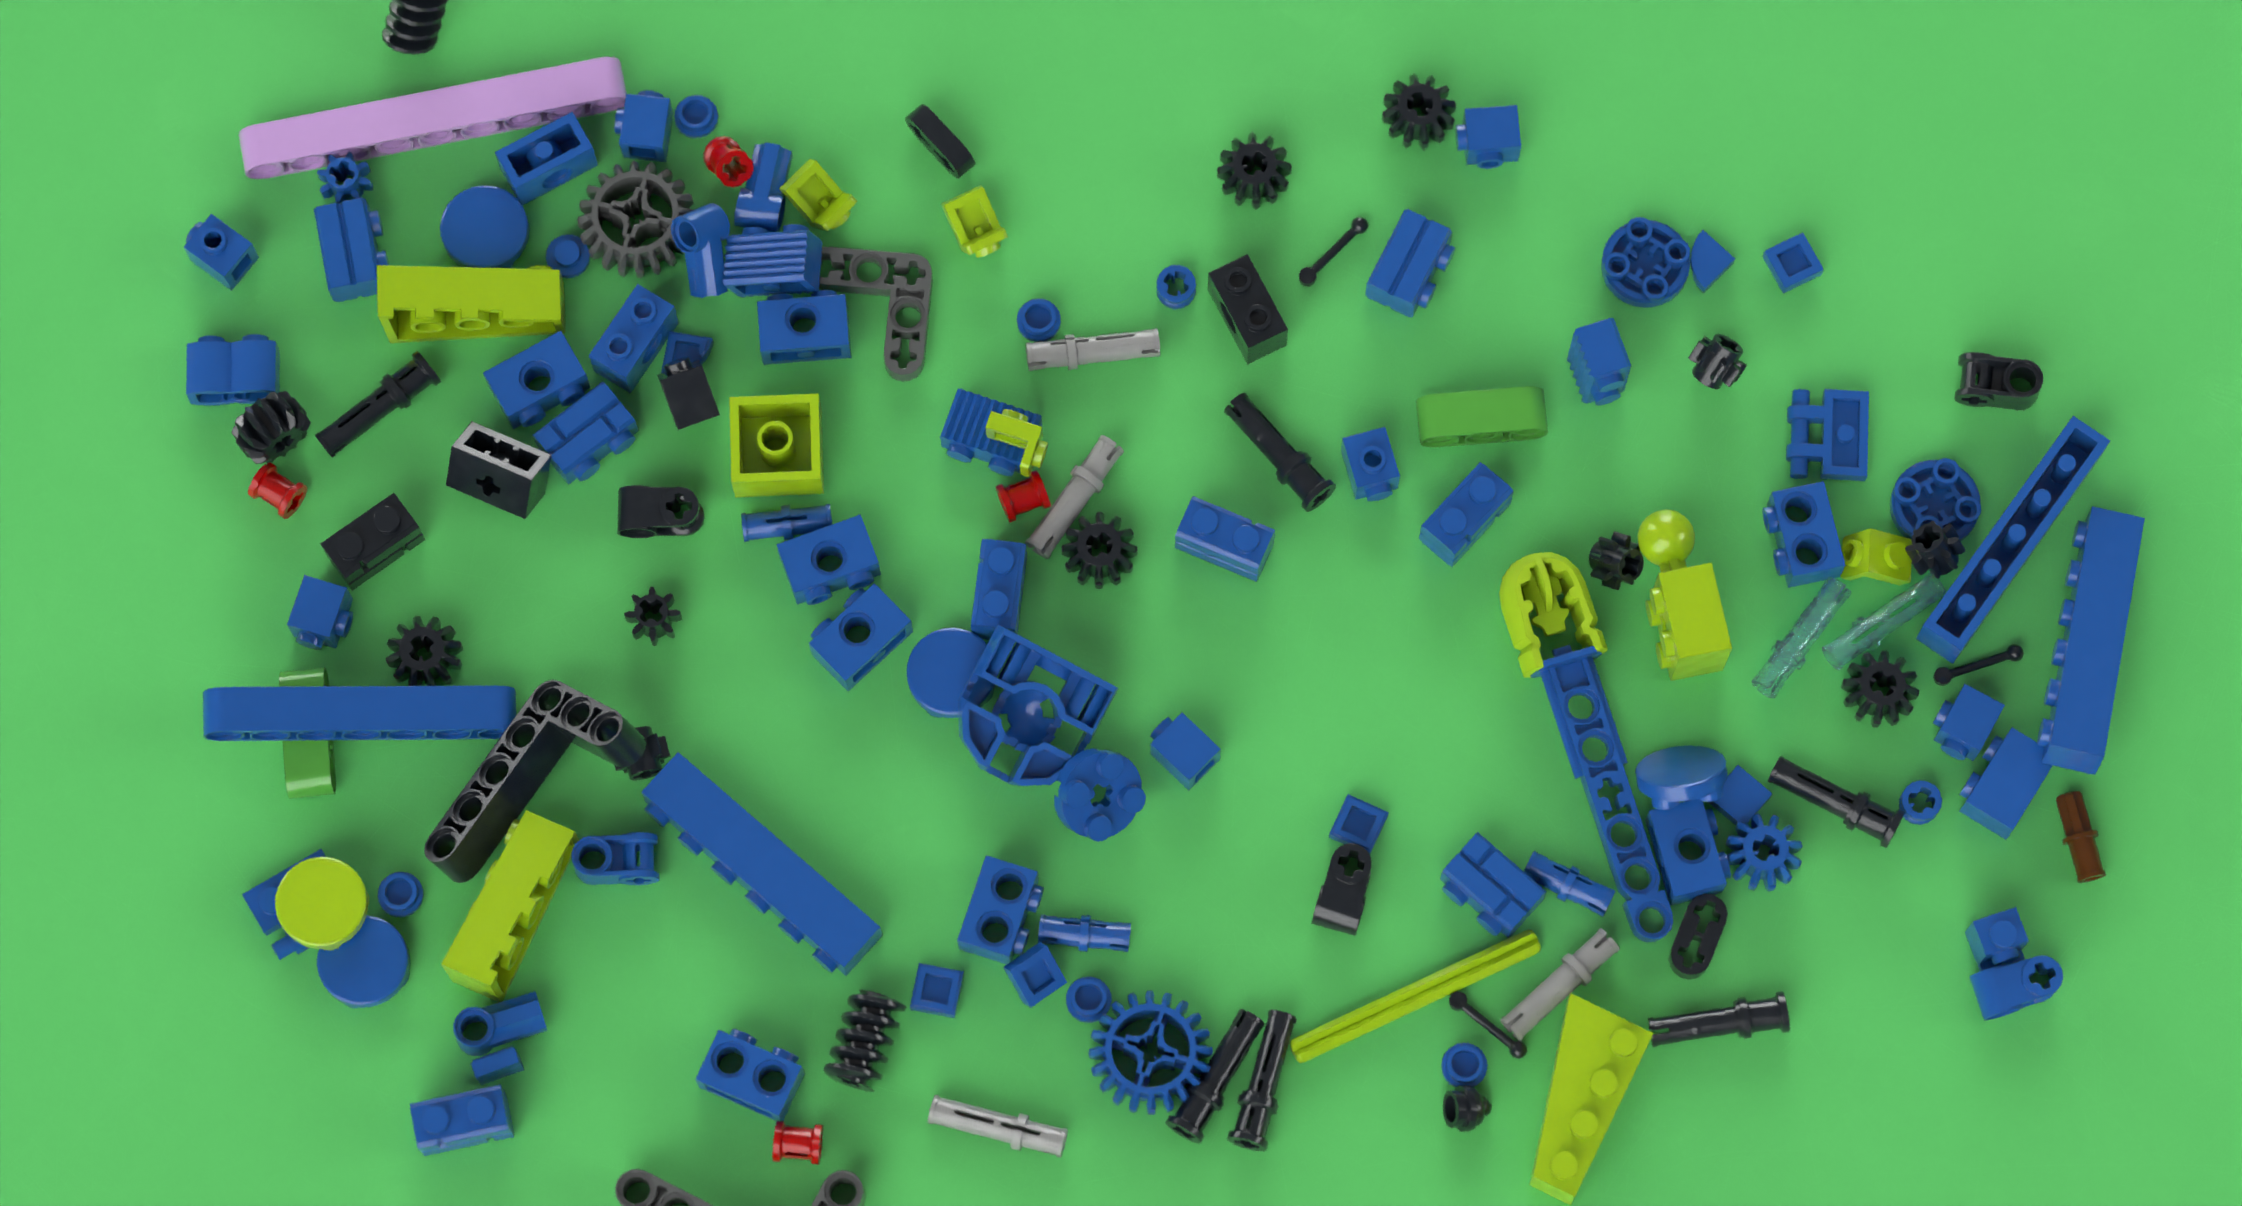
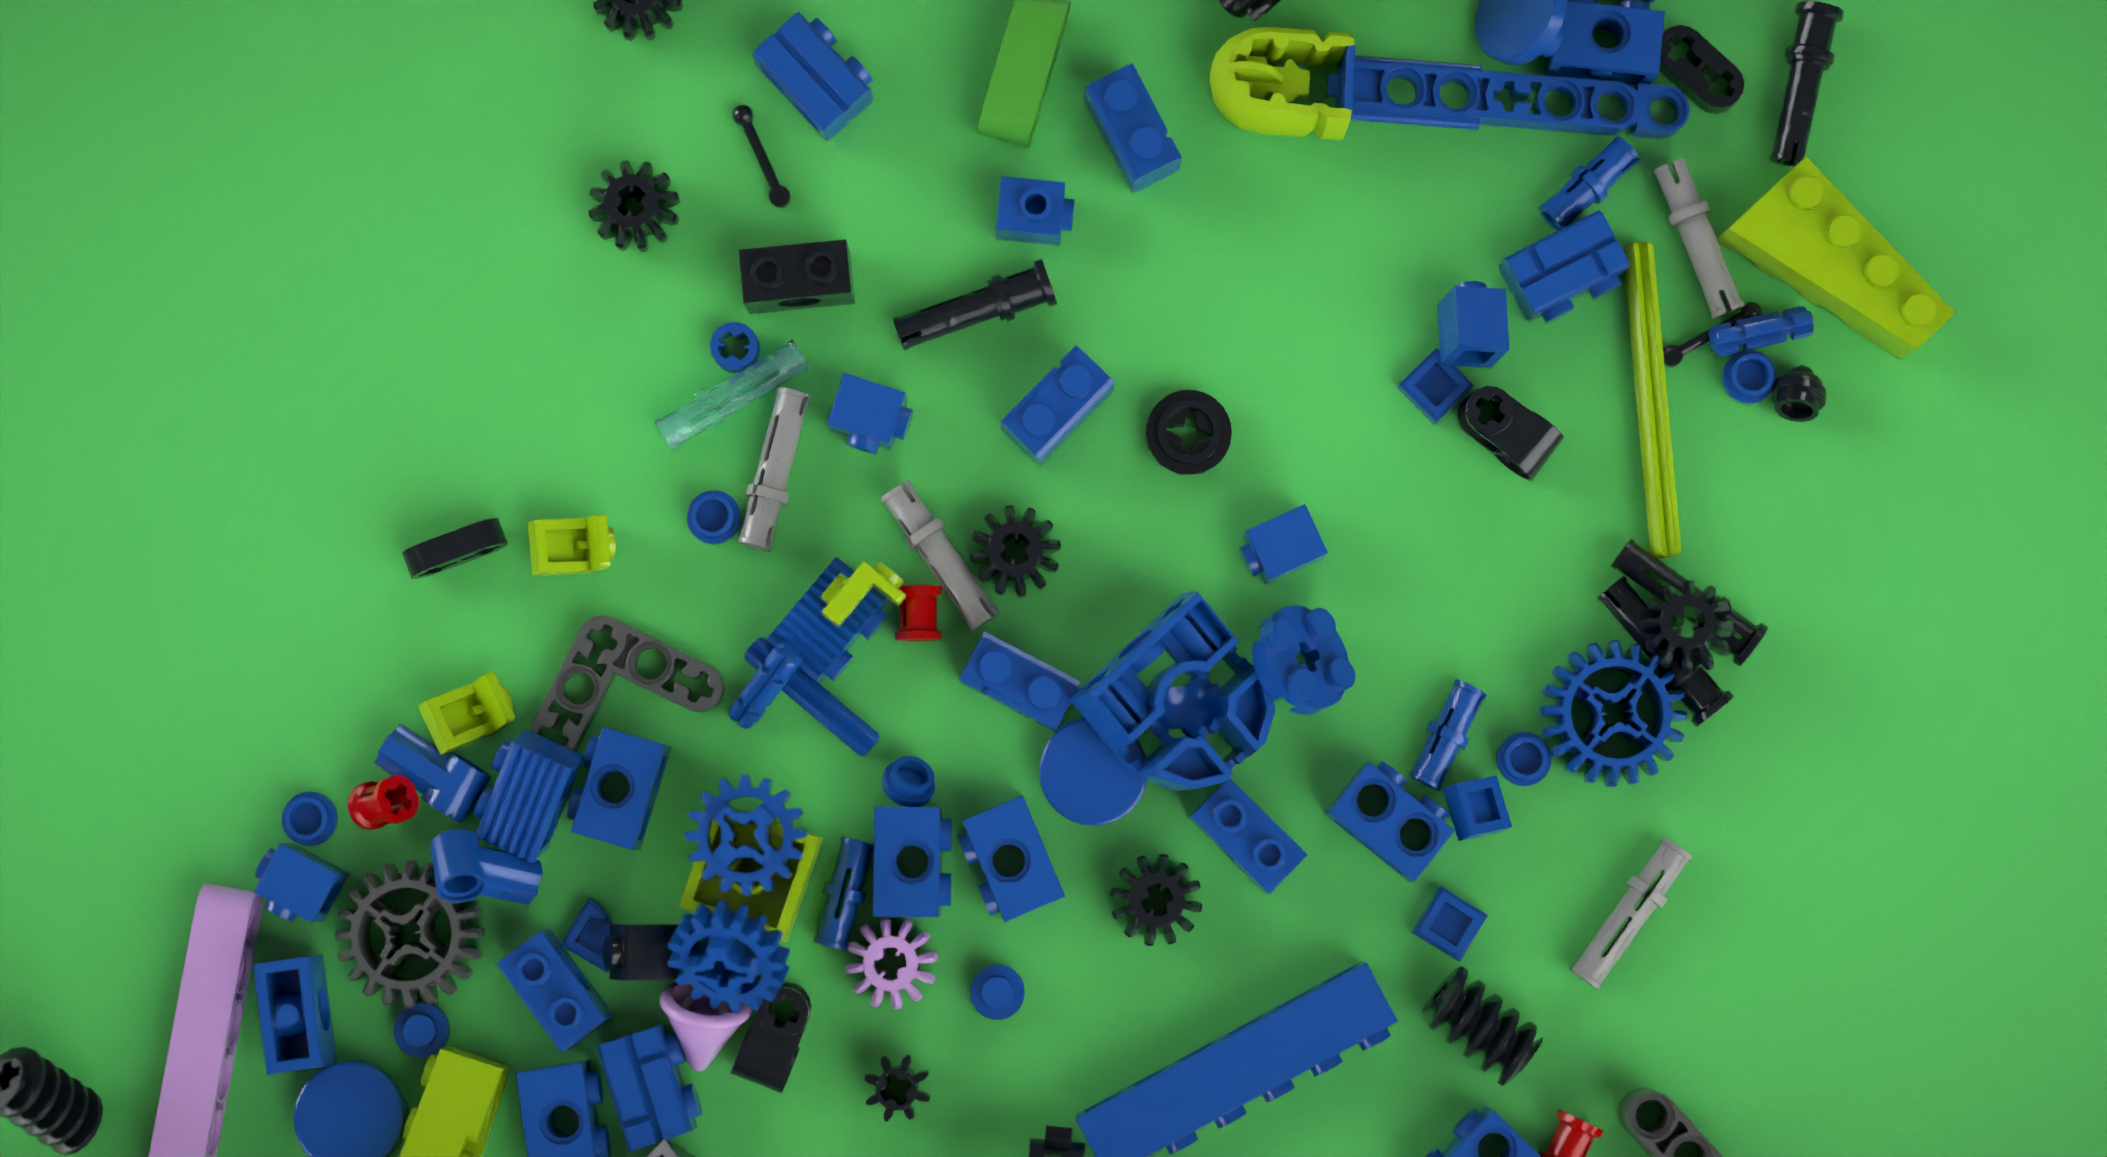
camera: 70 degrees left, 10 degrees up
(654, 453) = (697, 1026): none -> lavender hat
(705, 445) = (728, 957): none -> blue gear
(736, 588) = (878, 950): none -> lavender gear
(754, 665) = (997, 992): none -> blue plate
(784, 412) = (728, 853): none -> blue gear
(873, 740) = (1172, 907): none -> black gear
(890, 538) = (909, 781): none -> blue plate
(922, 402) = (765, 685): none -> blue axle
(927, 446) = (819, 703): none -> blue axle
(945, 805) = (1248, 836): none -> blue brick
(1124, 287) = (731, 395): none -> clear light blue pin
(1162, 402) = (869, 414): none -> blue brick
(1224, 1082) = (1673, 615): none -> black gear
(1259, 633) = (1209, 418): none -> black gear
(1415, 829) = (1473, 325): none -> blue brick
(1504, 1060) = (1761, 331): none -> blue axle

